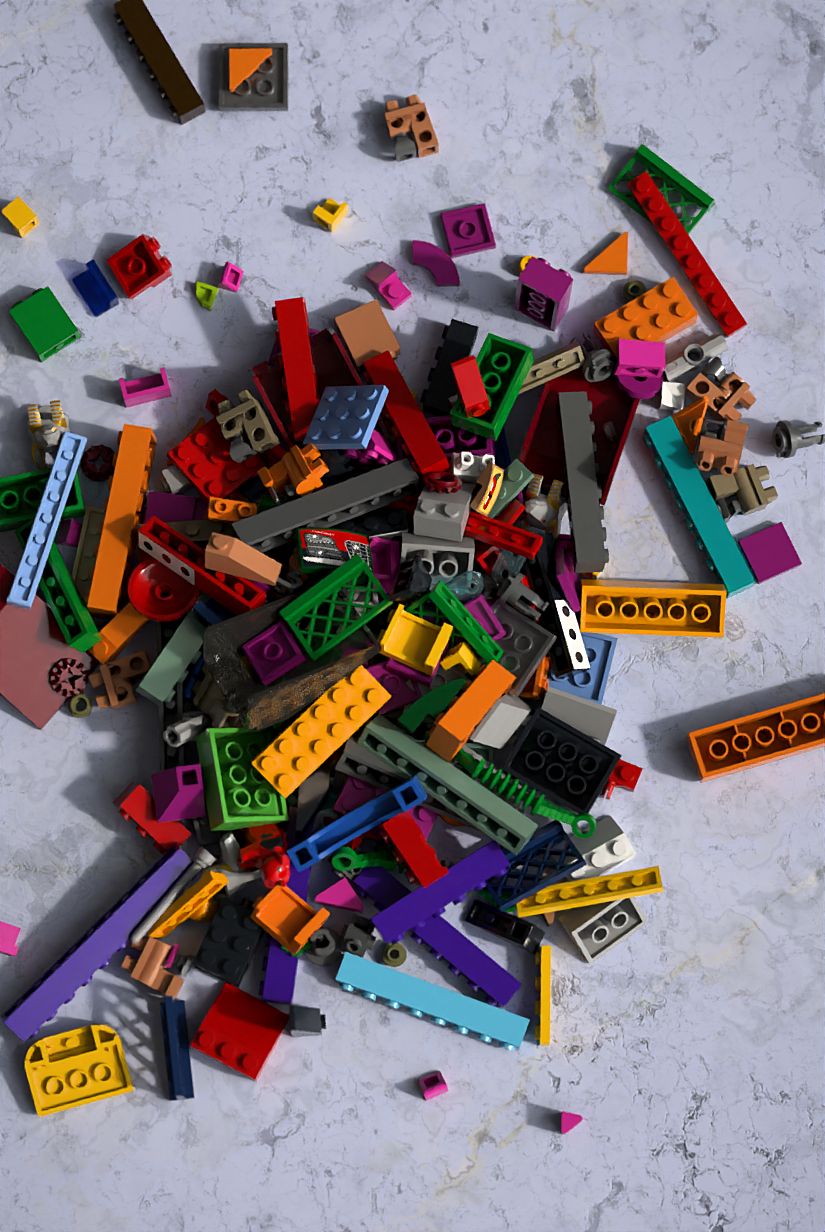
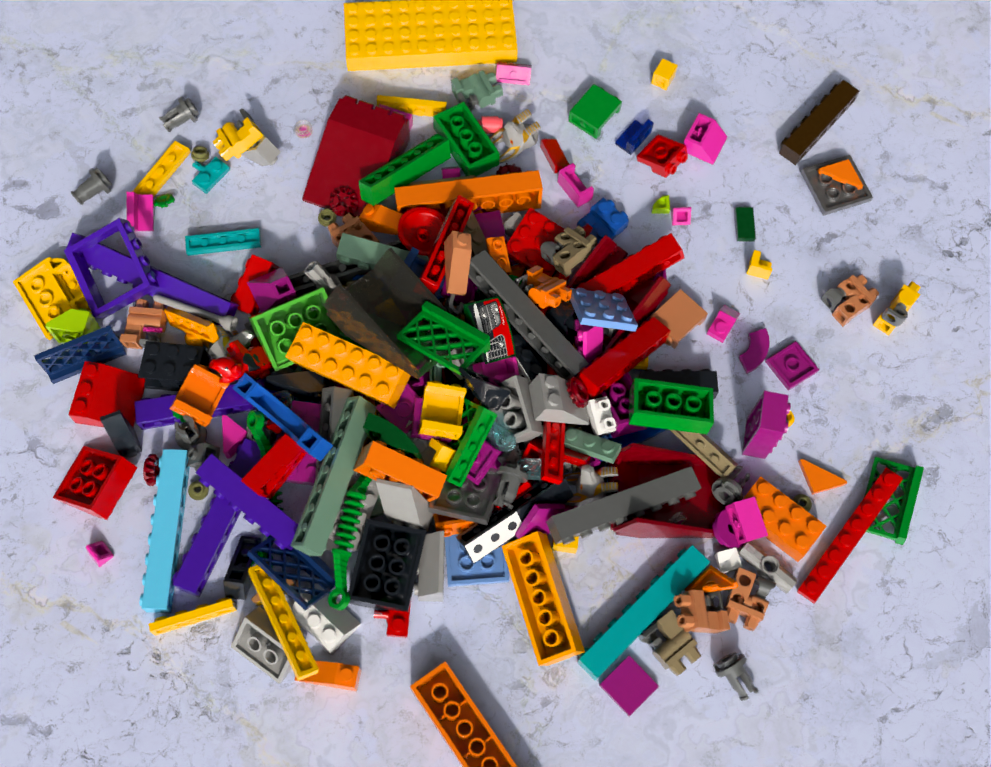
camera: 70 degrees right, 10 degrees down
(17, 459) = (491, 124): none -> coral brick
(46, 520) = (447, 143): light blue tile -> none
(71, 843) = (223, 241): none -> teal plate
(79, 1020) = (85, 278): none -> dark purple window
(88, 397) = (553, 154): none -> red slope
(136, 207) = (705, 139): none -> dark pink slope
(139, 1047) = (72, 325): none -> lime slope
(206, 371) = (605, 220): none -> blue plate
(267, 207) = (745, 224): none -> dark green tile
(273, 652) = (394, 311): magenta tile -> none
(344, 1071) = (95, 482): none -> red slope
(354, 999) = (151, 469): none -> dark red gear
(440, 76) = (897, 311): none -> yellow hips
(470, 387) = (659, 376): red slope -> none
(491, 482) = (590, 430): slope -> none
(569, 1121) = (91, 669): dark pink slope -> none
(662, 855) = (335, 675): none -> orange slope

